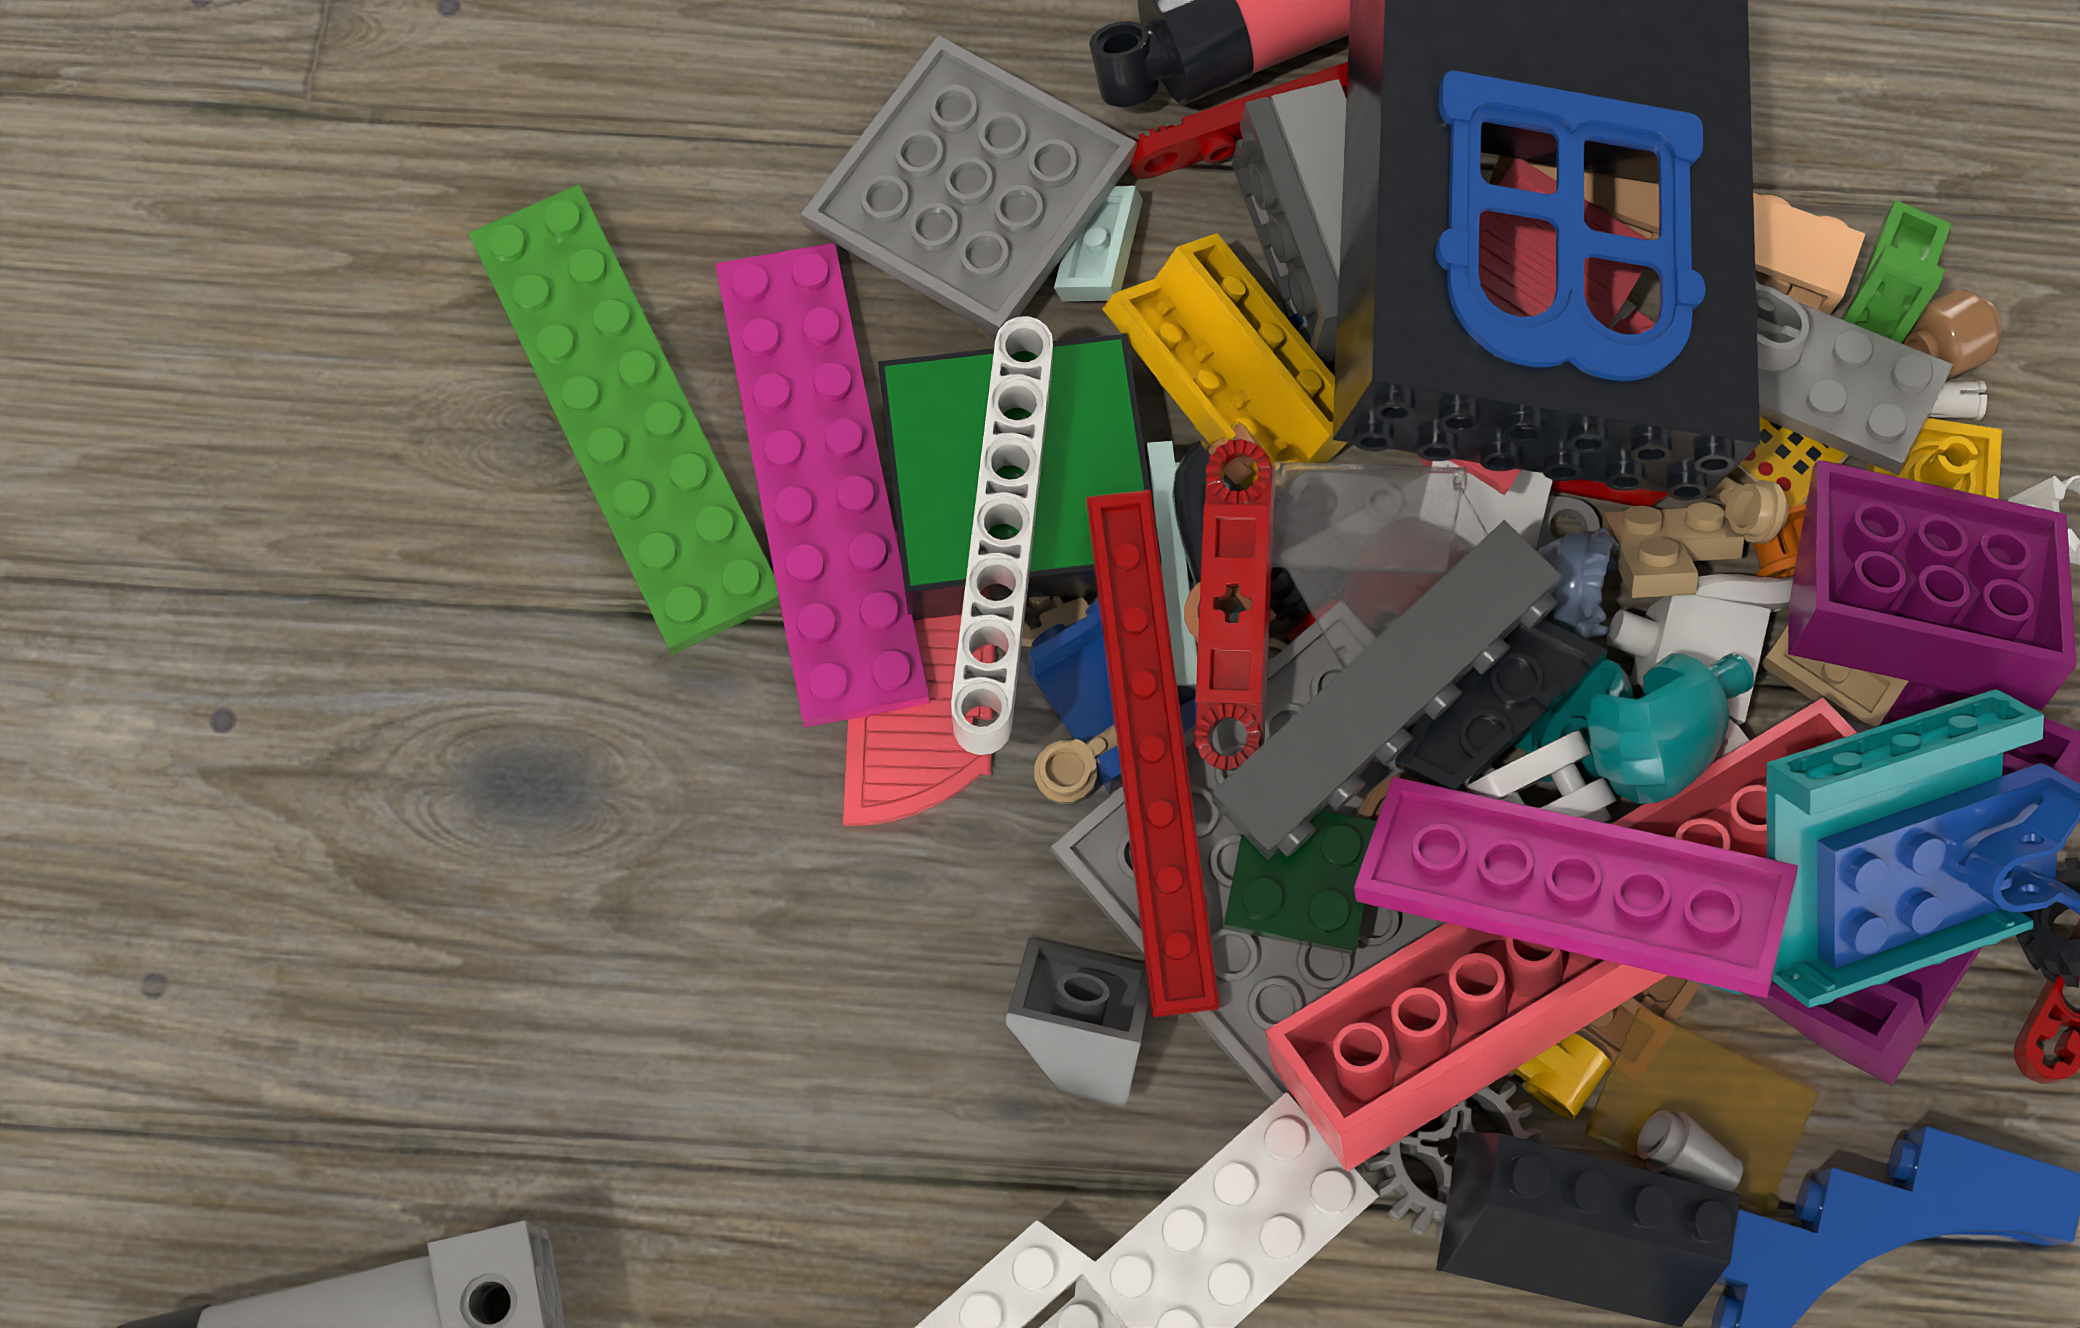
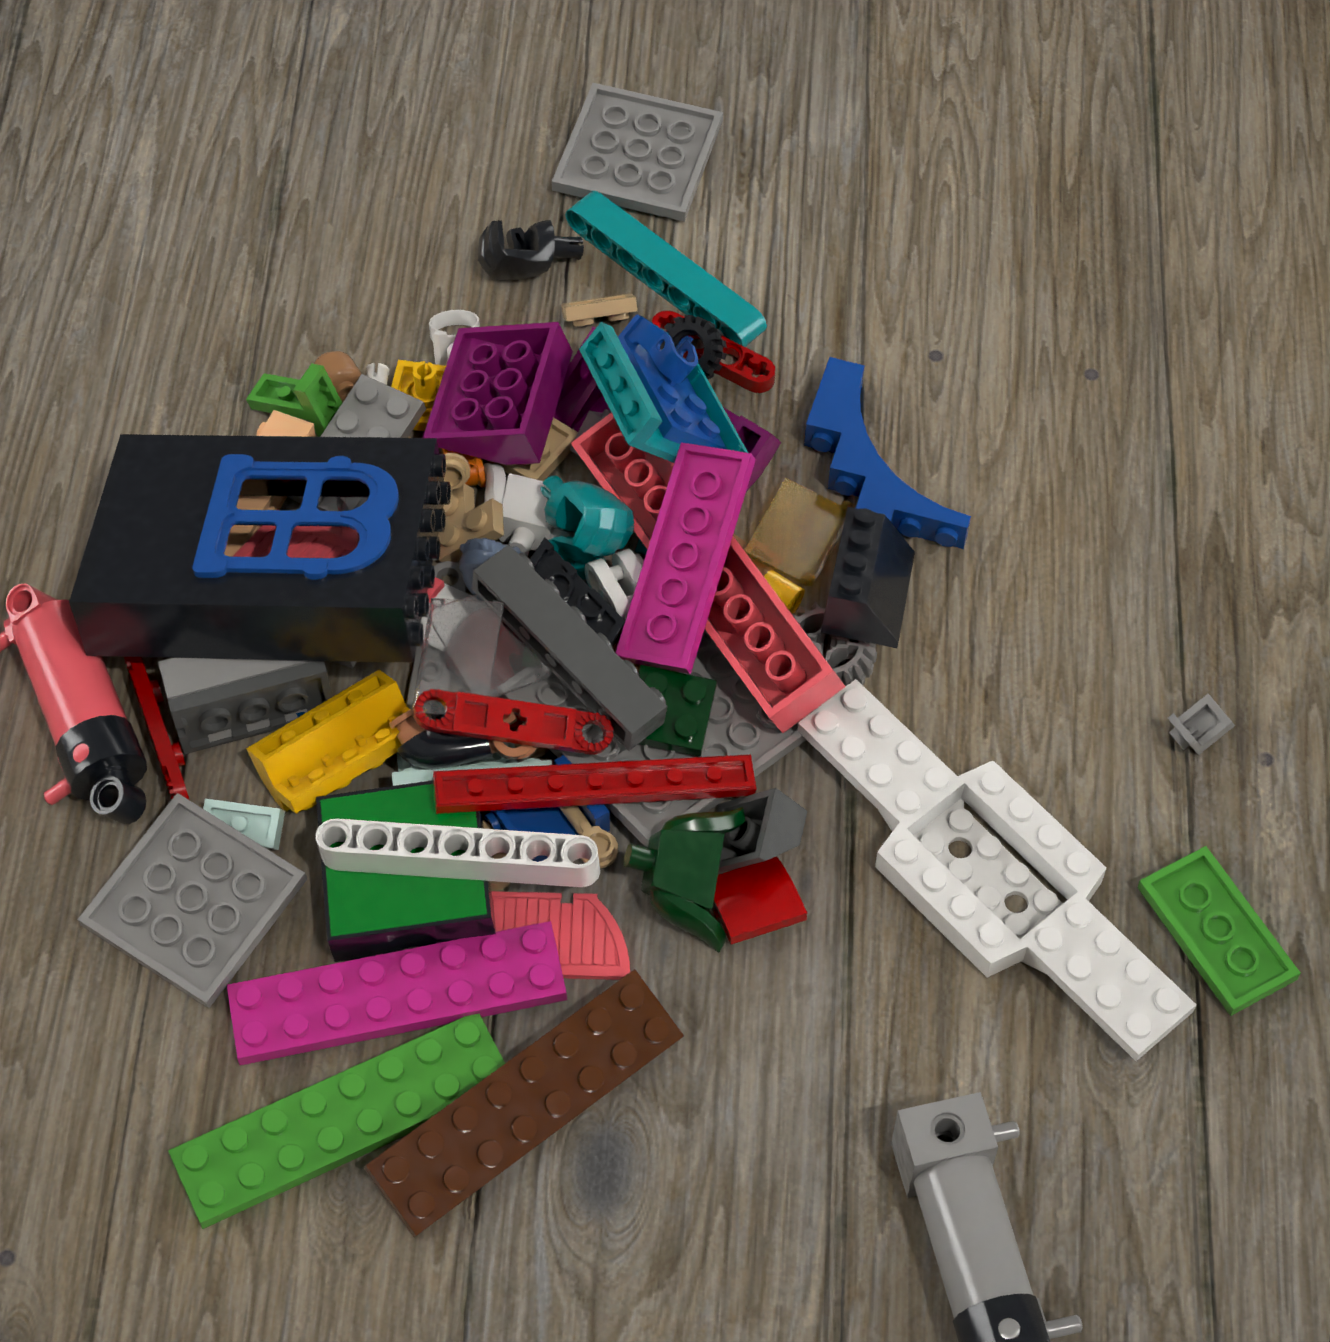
camera: 90 degrees left, 15 degrees down
(632, 670) = (523, 1103): none -> reddish brown plate
(958, 1017) = (757, 900): none -> red slope
(1006, 896) = (684, 869): none -> dark green torso
(1684, 1150) = (822, 537): light grey cone -> none

